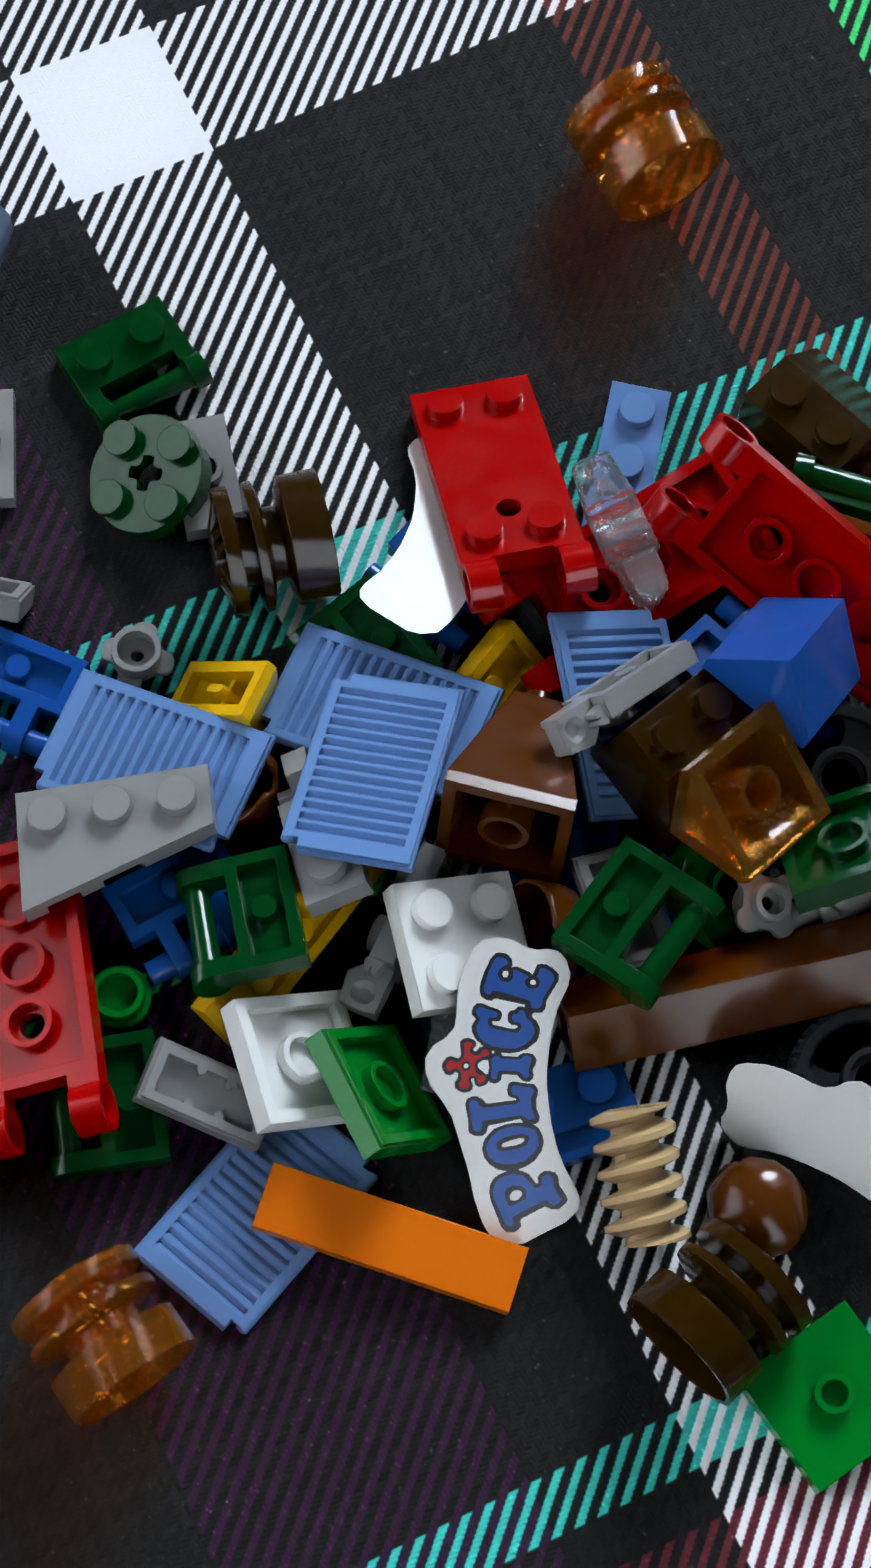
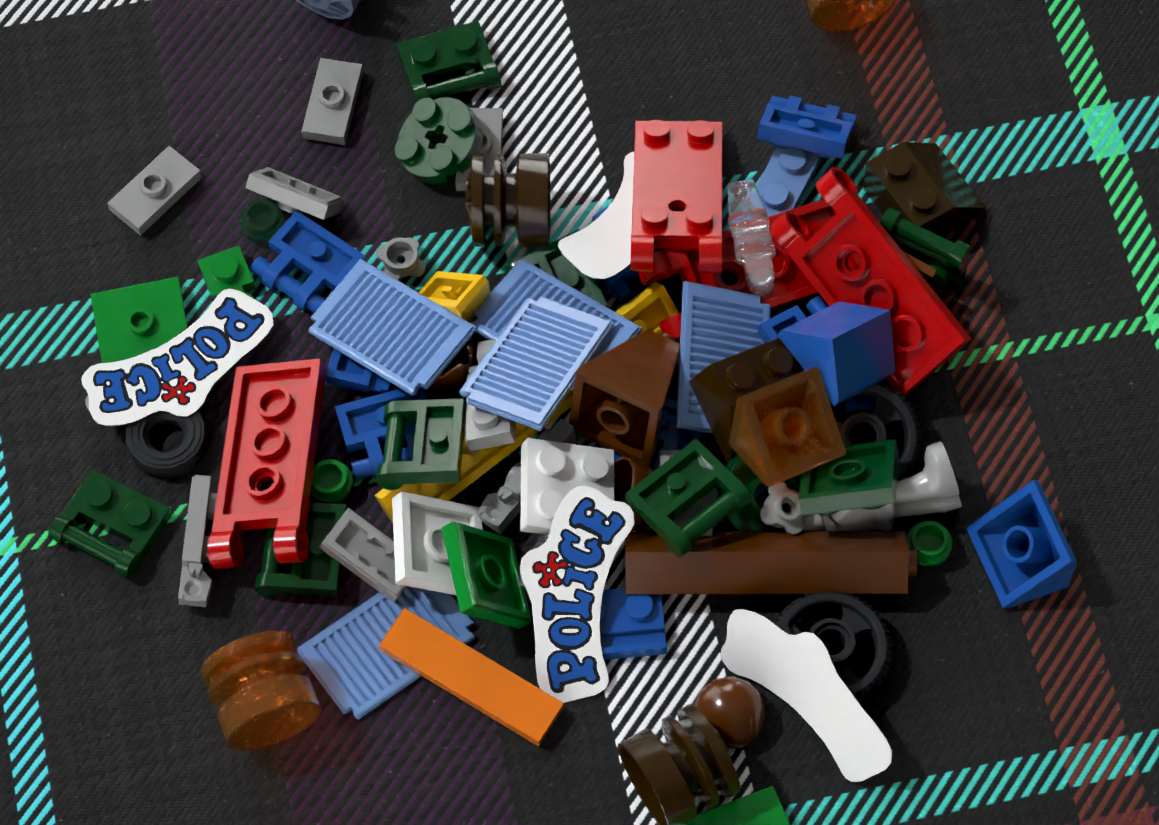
camera: 20 degrees right, 5 degrees down
(100, 828) = (339, 363): light grey wing -> none
(614, 695) = (710, 347): light grey hinge -> none
(641, 1175) = (649, 667): tan piece -> none
(646, 359) = (806, 126): none -> blue plate

